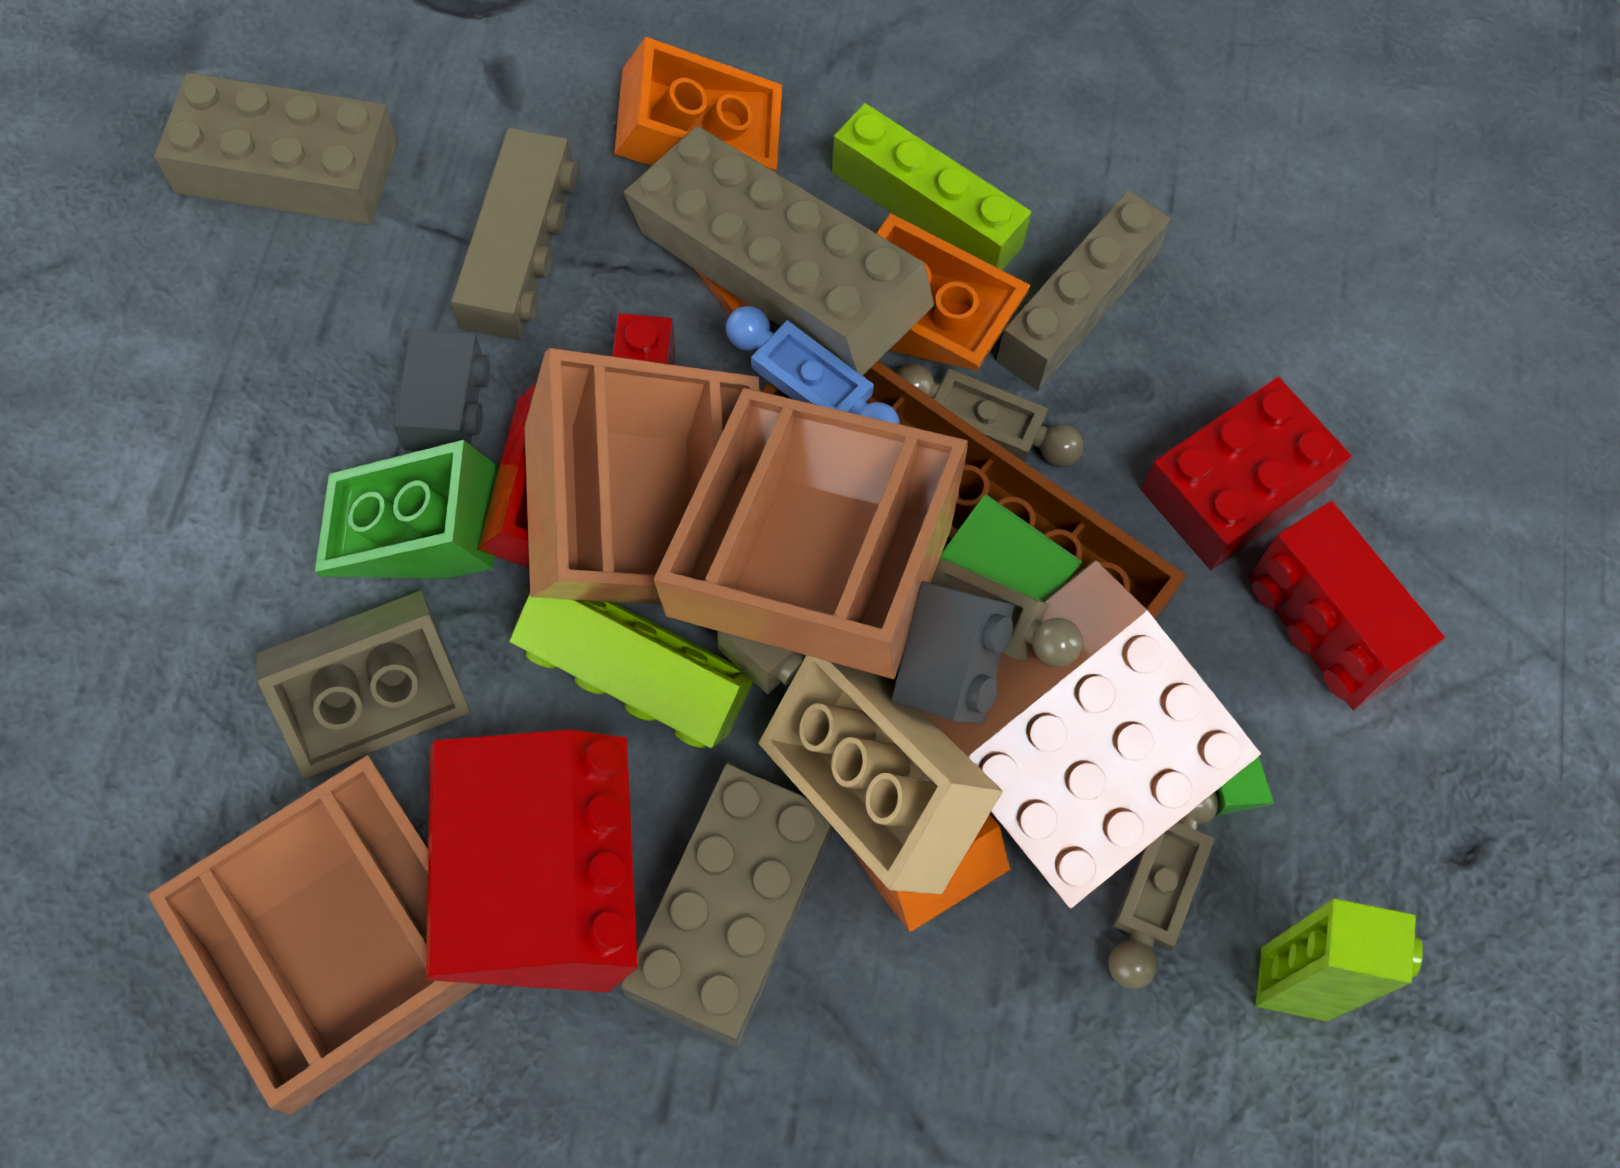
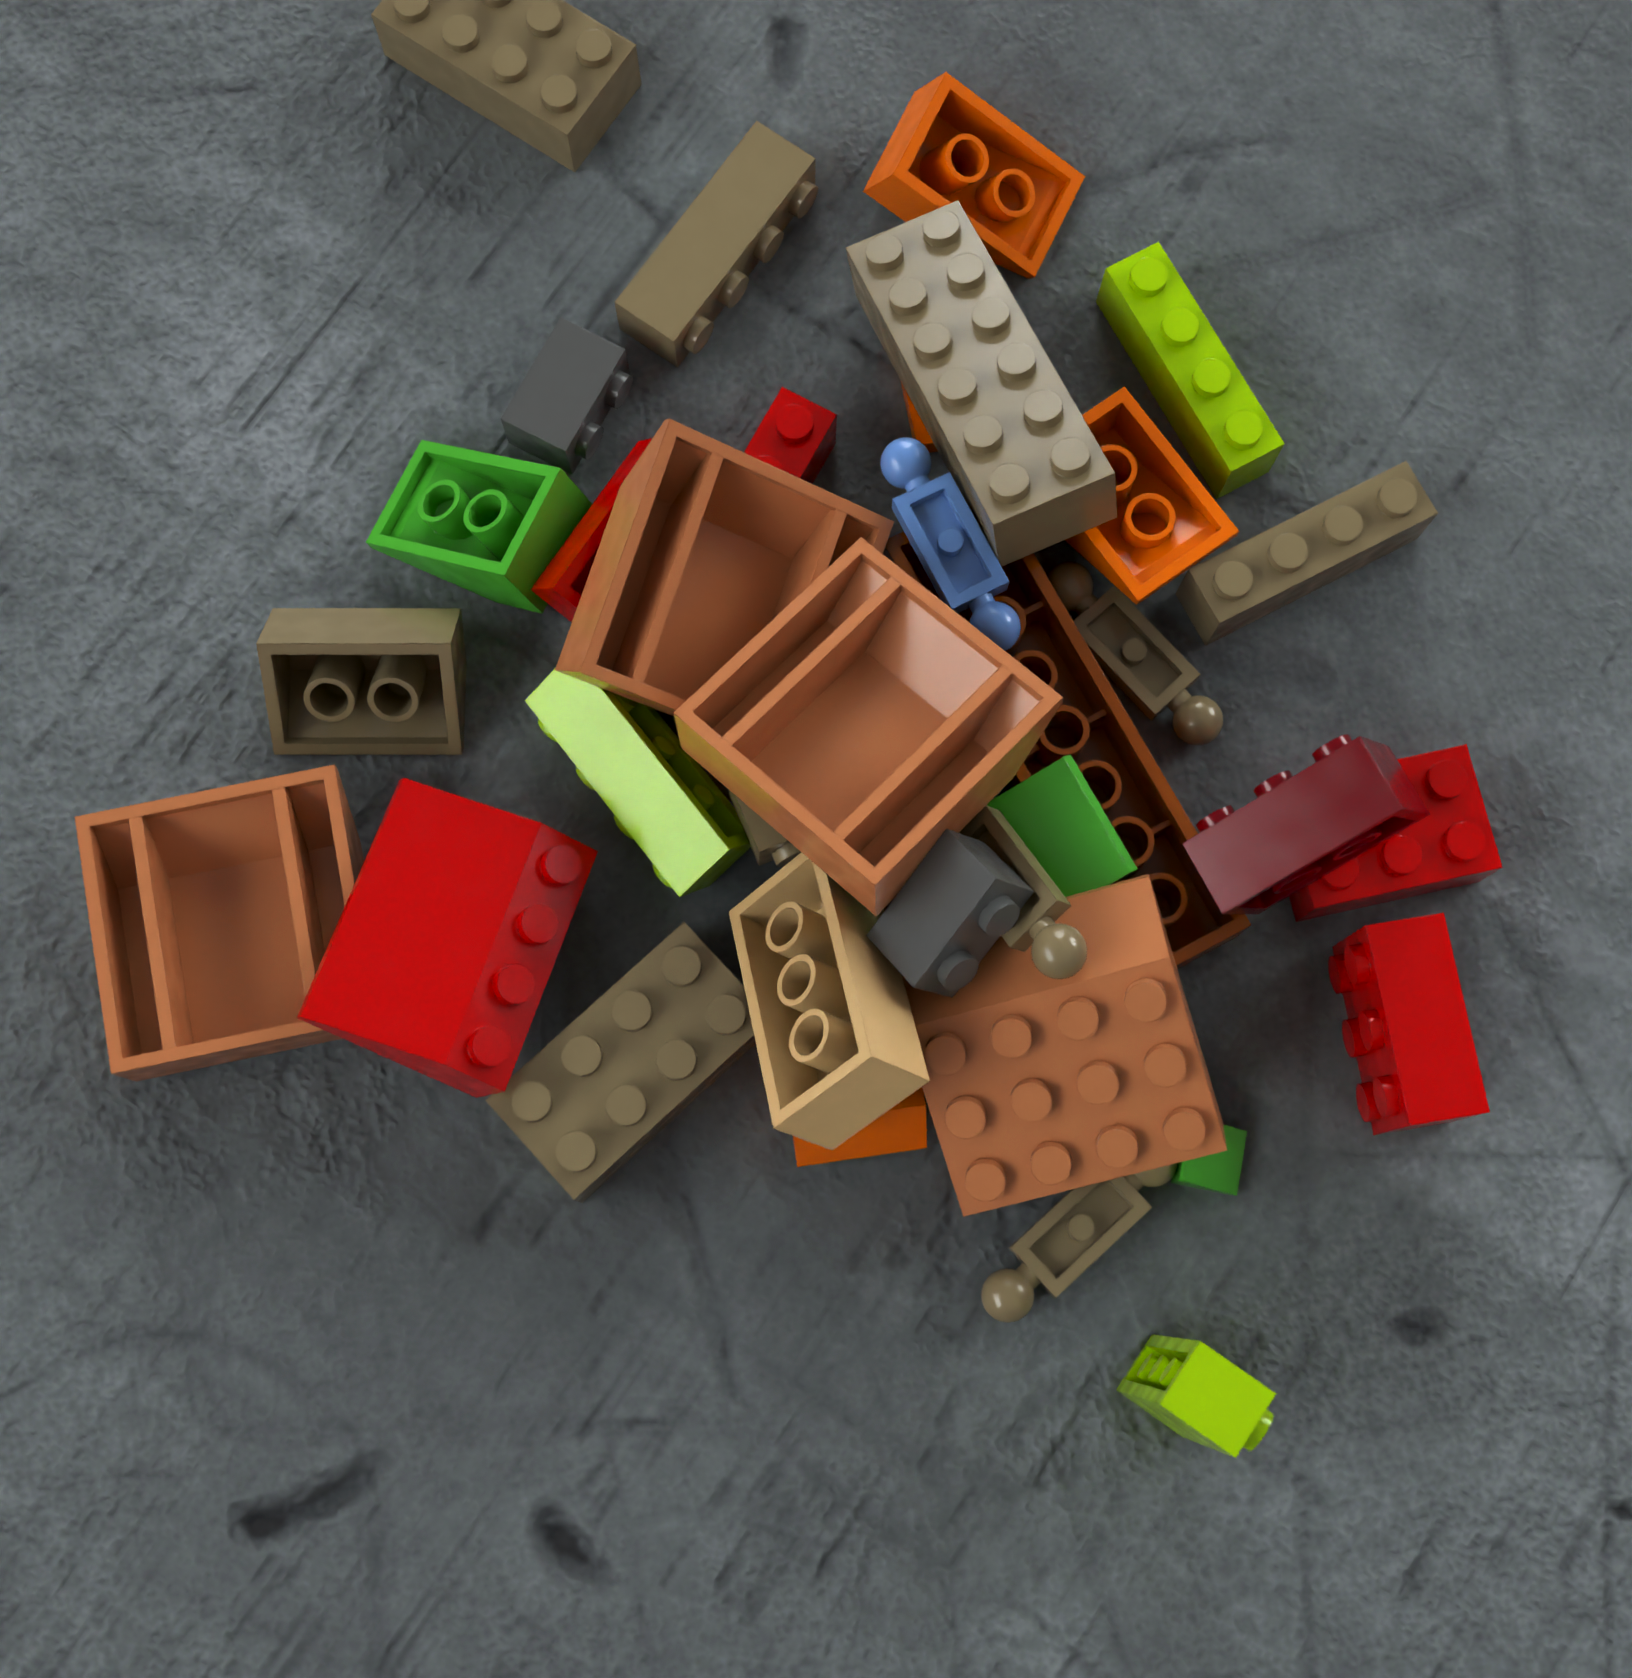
camera: 25 degrees right, 10 degrees up
(1196, 472) = (1304, 825): none -> dark red brick

